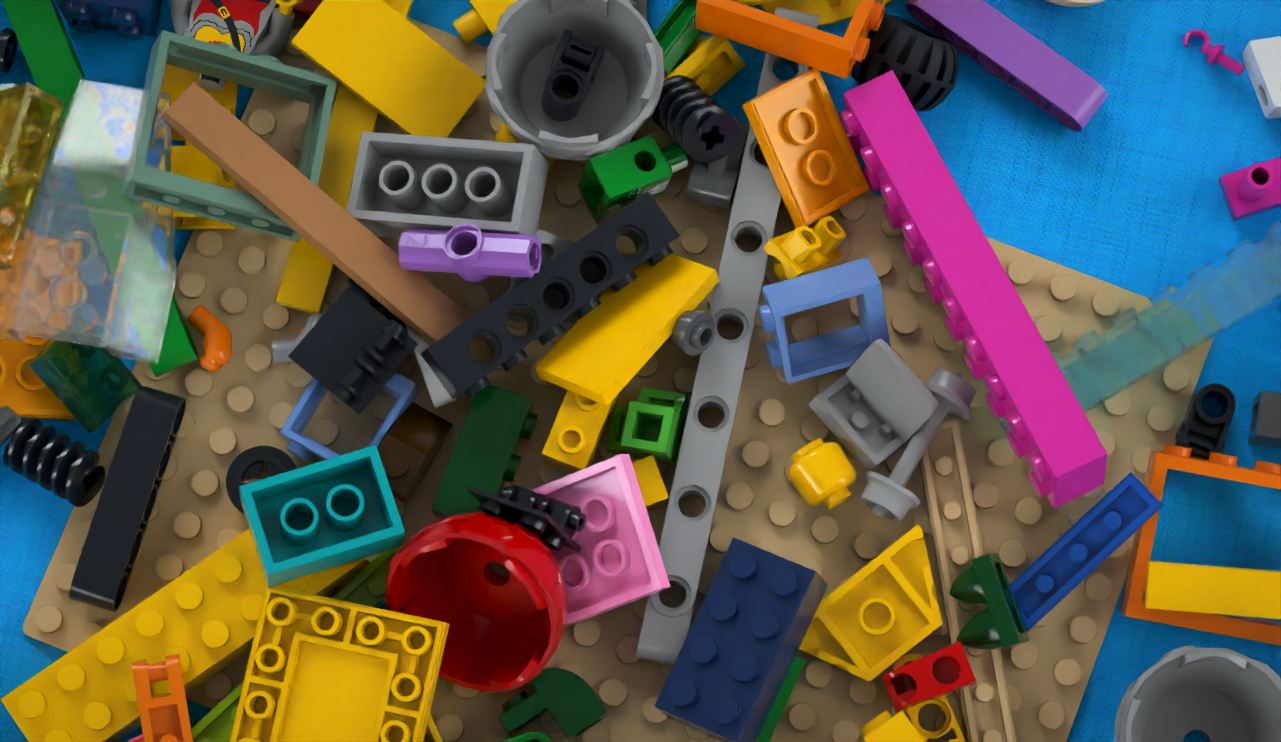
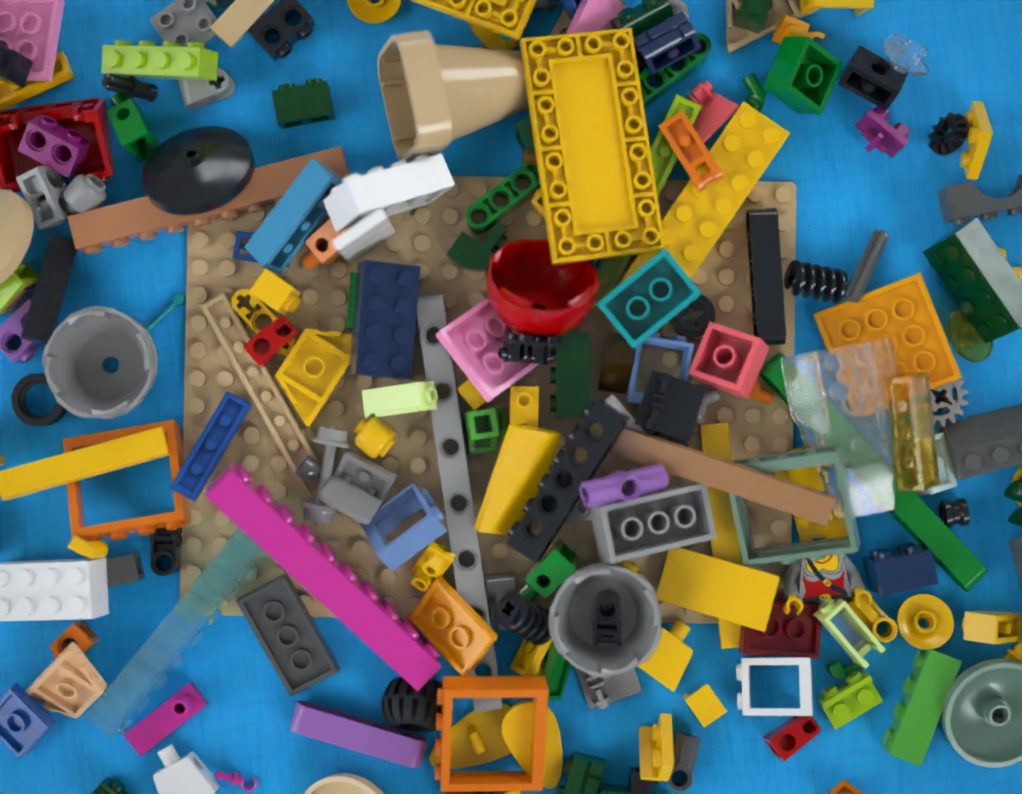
camera: 155 degrees right, 10 degrees up
(85, 380) = (817, 332): clear green bracket -> none
(237, 387) = (728, 360): none -> coral brick
(694, 332) = (476, 489): dark grey plate -> none
(761, 513) = (399, 399): none -> yellowish green window
(942, 462) = (308, 469): none -> dark grey hinge
(999, 623) = (242, 388): dark green tile -> none
(1061, 233) = (288, 634): none -> dark grey tile

